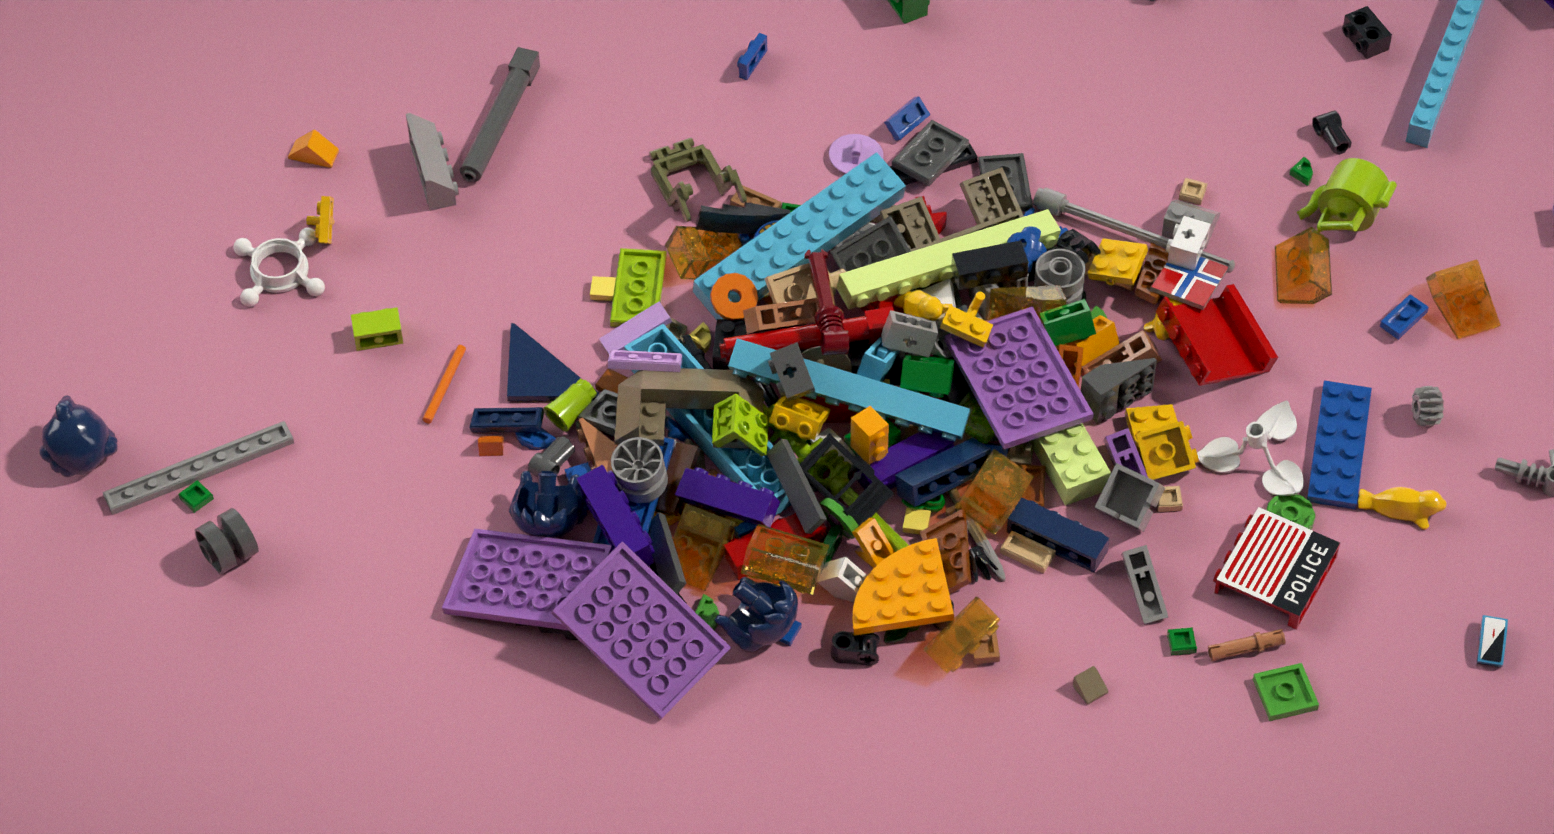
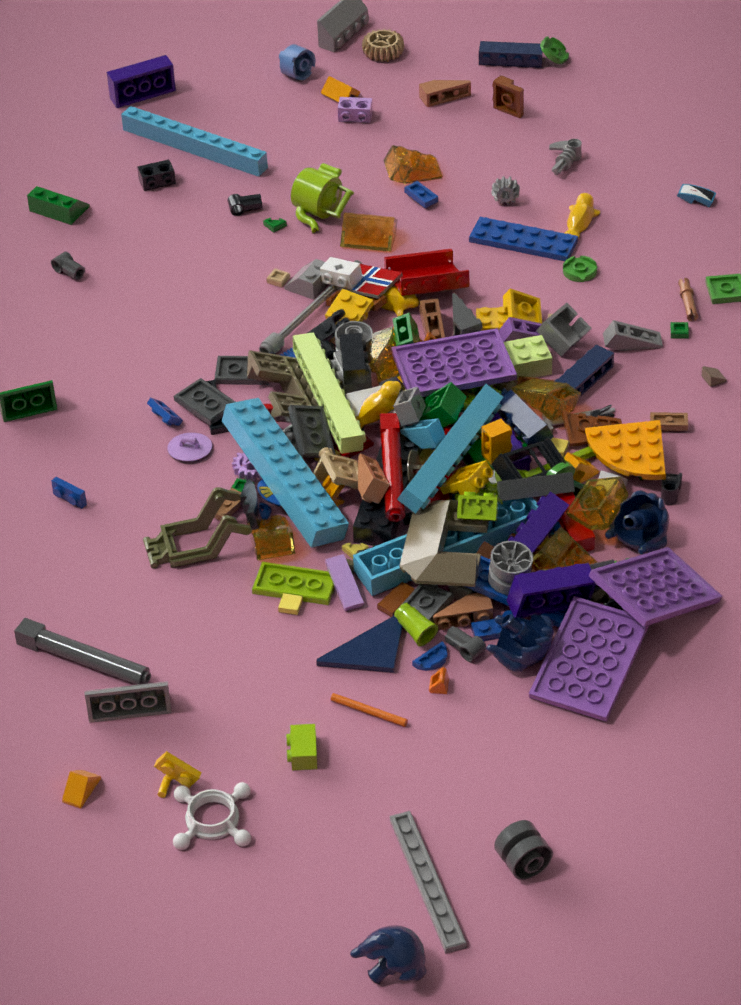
camera: 80 degrees left, 10 degrees down
(196, 496) = (458, 883): green tile -> none
(507, 419) = (419, 668): dark blue tile -> none
(645, 361) = (395, 563): lavender tile -> none
(739, 284) = (339, 507): orange tile -> none
(801, 382) = (443, 462): dark grey brick -> none
(829, 317) = (389, 440): dark red piece -> none
(962, 635) = (675, 421): clear yellow brick -> none
(967, 324) = (407, 376): yellow plate -> none
(1027, 551) = (593, 394): tan tile -> none
(1030, 240) = (327, 347): blue plate -> none
(1276, 423) = (501, 263): white plant -> none
(1278, 564) = (625, 275): panel -> none

